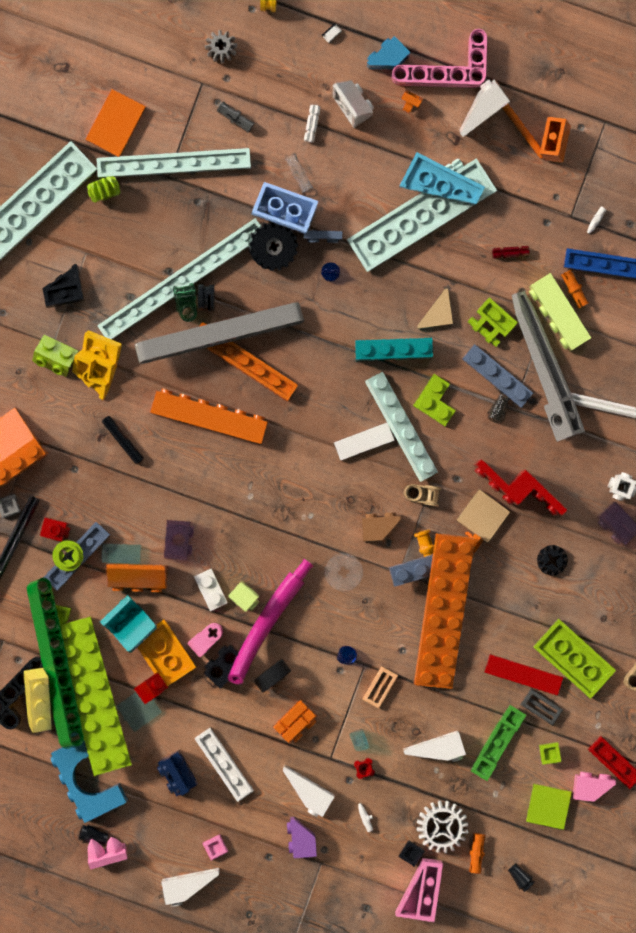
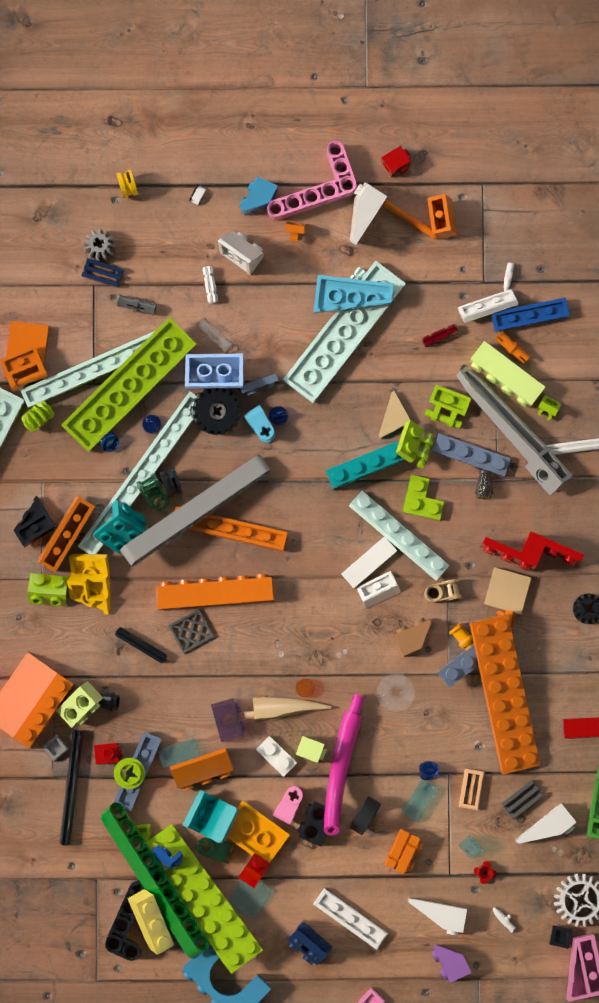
camera: 20 degrees left, 5 degrees down
(44, 473) = (80, 705): none -> yellowish green brick
(70, 479) = (110, 701): none -> black cone
(72, 643) = (164, 854): none -> blue bracket
(89, 310) = (65, 533): none -> orange brick
(107, 131) = (21, 362): none -> orange plate
(123, 658) = (219, 852): none -> clear green piece
(145, 323) = (121, 528): none -> teal bracket
(159, 446) = (184, 619): none -> dark grey window
(162, 238) = (109, 442): none -> clear blue tile
(200, 190) = (128, 384): none -> lime plate
(202, 65) = (87, 268): none -> dark blue tile
(208, 236) = (151, 424): none -> clear blue tile
(227, 545) = (274, 708): none -> tan piece
(260, 536) = (304, 688): none -> clear orange tile
(310, 271) = (258, 422): none -> medium azure piece
(328, 680) = (419, 800): none -> clear light blue tile
(363, 470) = (378, 589): none -> white slope
(426, 721) = (509, 809): none -> dark grey tile
(446, 341) = (409, 443): none -> lime plate
(532, 70) = (396, 161): none -> red brick
(566, 240) = (487, 306): none -> white tile
(588, 356) = (550, 406): none -> lime tile

